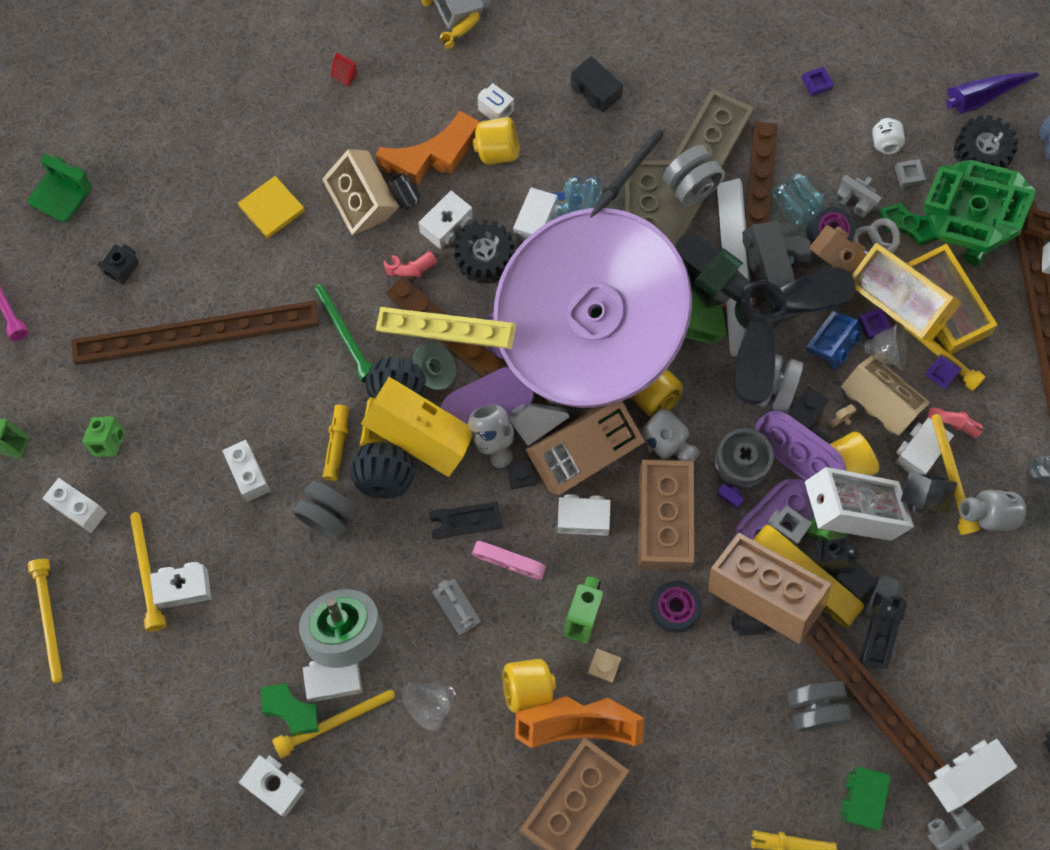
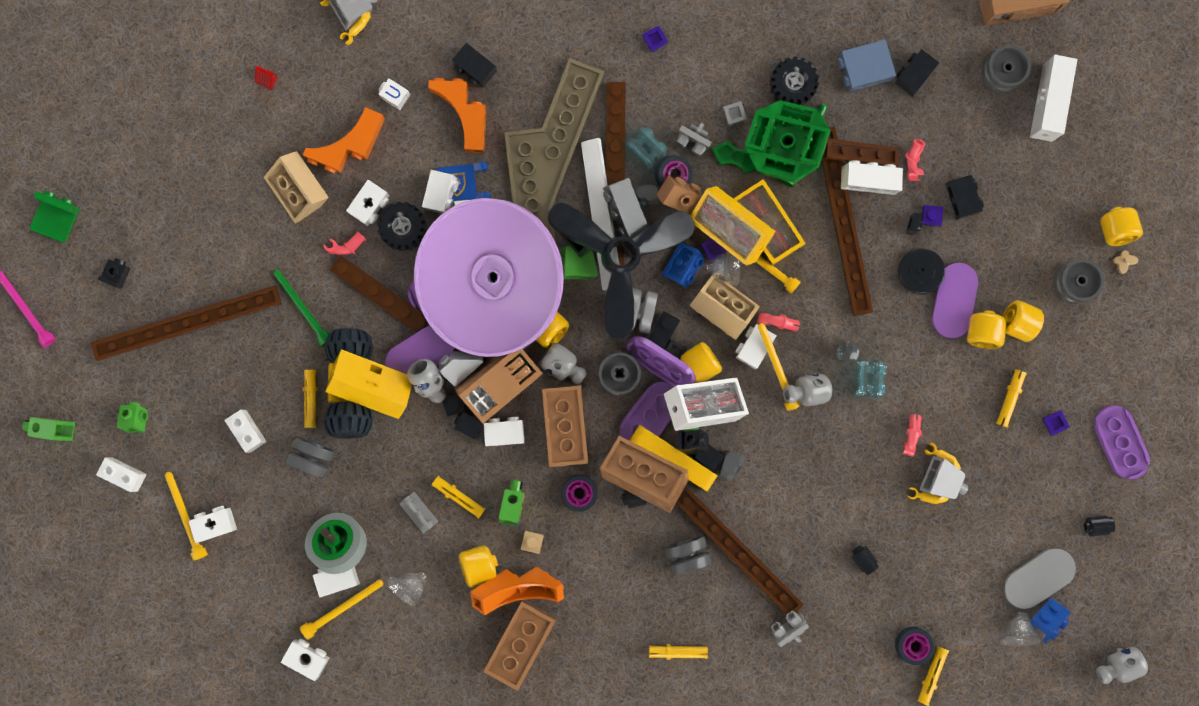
camera: 10 degrees left, 15 degrees up
(39, 570) = (105, 526): yellow piece -> none
(271, 207) = (226, 207): yellow tile -> none
(299, 716) = (316, 609): green tile -> none
(404, 191) = (330, 182): black brick -> none
(441, 363) = (383, 327): sand green dish -> none
(446, 327) = (380, 299): light yellow tile -> none
(466, 520) = (418, 446): black plate -> none
(488, 570) = (451, 492): none -> yellow pin
(496, 141) = (399, 129): yellow head -> none
(506, 558) = (452, 473): bright pink beam -> none
(538, 500) = (468, 425): none -> black brick
(580, 195) = (473, 174): clear light blue brick -> none
(585, 136) = (472, 115): none -> orange arch
(614, 188) = (494, 175): black piece -> none
(693, 175) = (559, 146): light grey wheel -> none
(718, 272) = (584, 235): clear green tile -> none
(731, 495) = (613, 402): dark purple plate -> none
(796, 522) = (663, 426): light grey brick -> none
(842, 415) = (693, 328): tan piece -> none
(865, 798) = (726, 613): green brick -> none
(875, 237) = (710, 174): light grey piece -> none
(882, 631) = (731, 493): black plate -> none
(888, 136) = (715, 83): white head -> none
(928, 493) = (758, 385): black brick -> none
(943, 371) = (768, 281): dark purple plate -> none
(971, 774) = (799, 588): white brick -> none
(979, 92) = (788, 30): dark purple piece -> none

